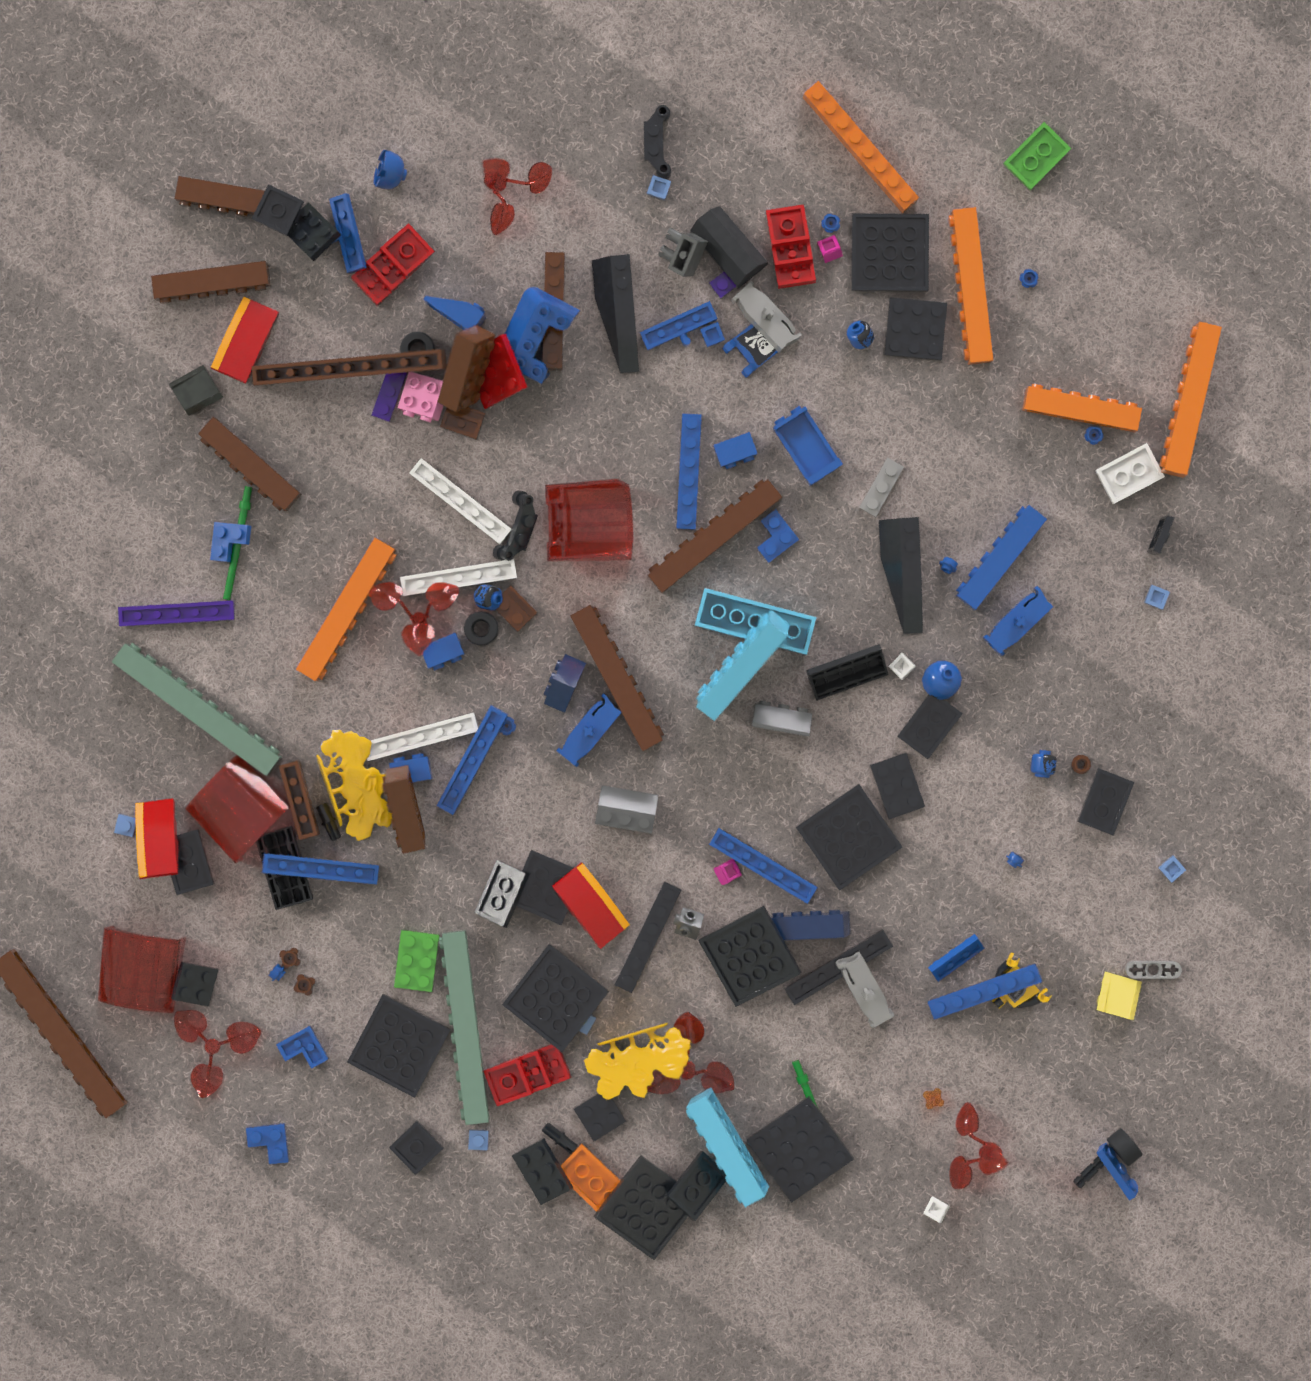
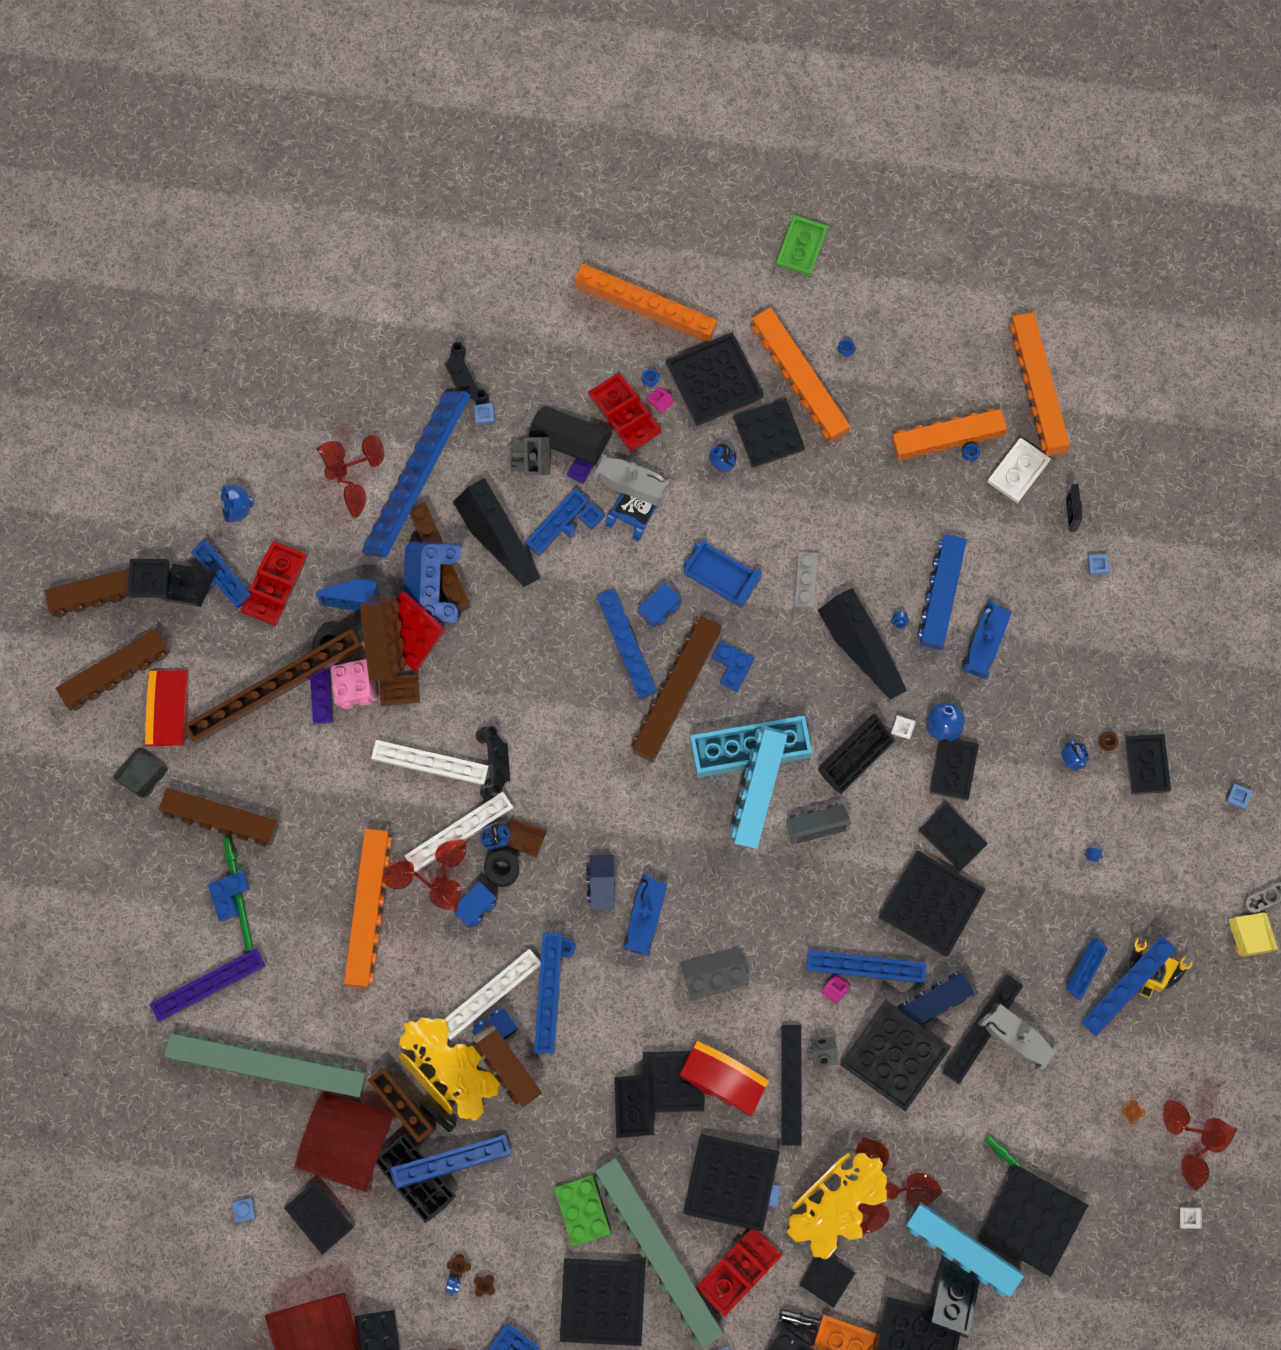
camera: 20 degrees left, 15 degrees down
(156, 838) = (279, 1206): red slope -> none
(568, 219) = (415, 474): none -> blue plate
(589, 521) = (556, 724): clear red windscreen -> none
(616, 677) = (648, 856): reddish brown brick -> none

